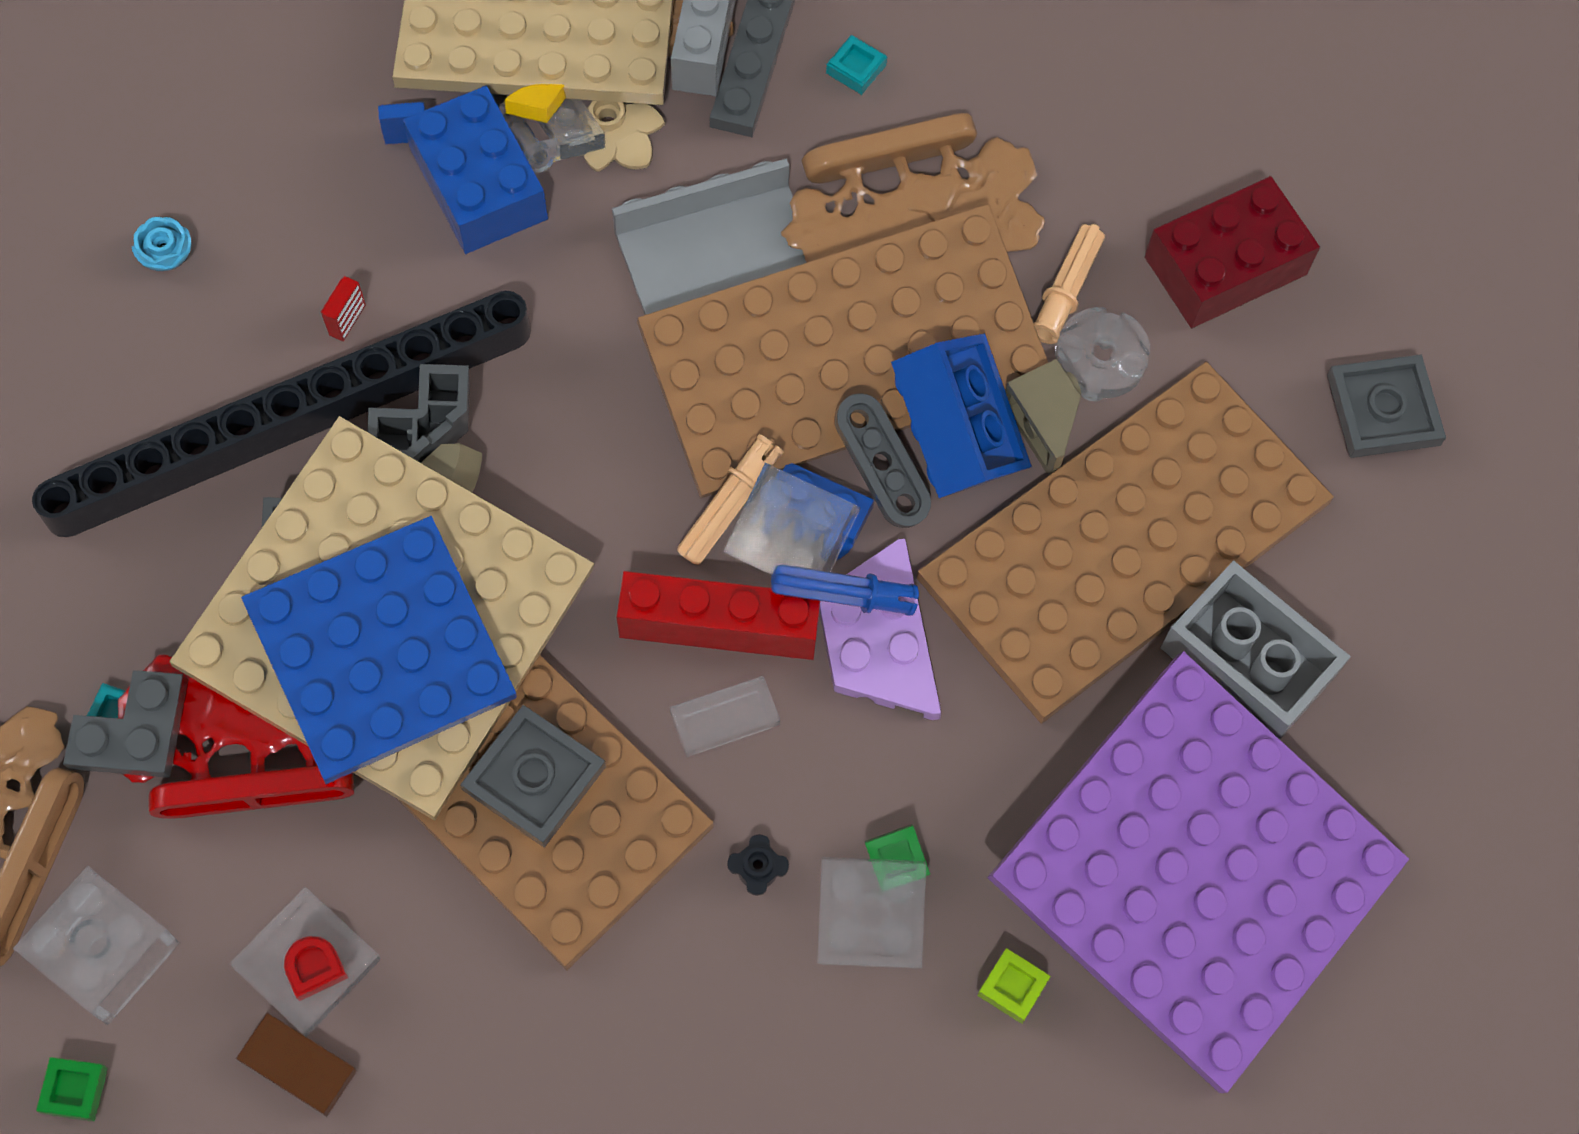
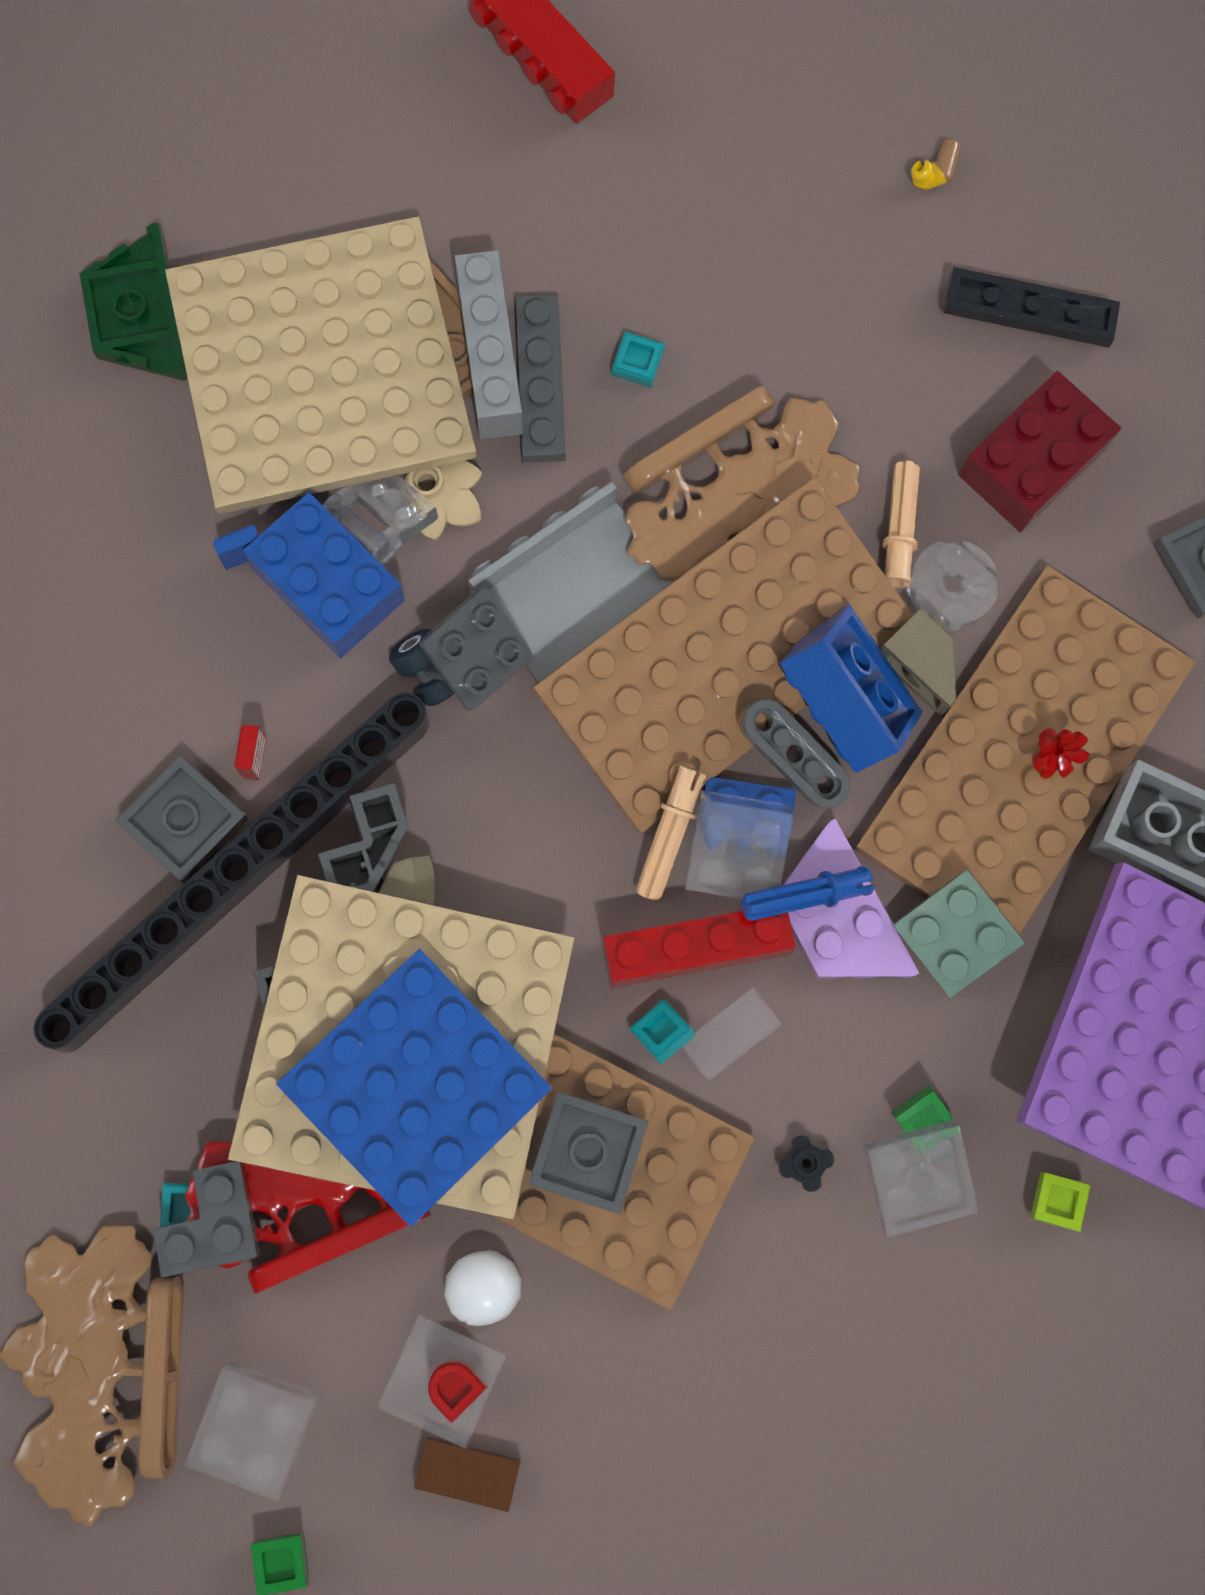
camera: 20 degrees left, 10 degrees up
(157, 232) = (42, 731): medium azure plate -> none
(252, 348) = (181, 819): none -> dark grey plate
(381, 884) = (482, 1288): none -> white hair
(536, 101) = (359, 493): yellow tile -> none
(585, 275) = (464, 654): none -> dark grey plate
(655, 690) = (662, 1031): none -> teal tile
(994, 683) = (958, 933): none -> sand green plate
(1154, 534) = (1059, 751): none -> red plant
(1269, 120) = (1031, 307): none -> black plate

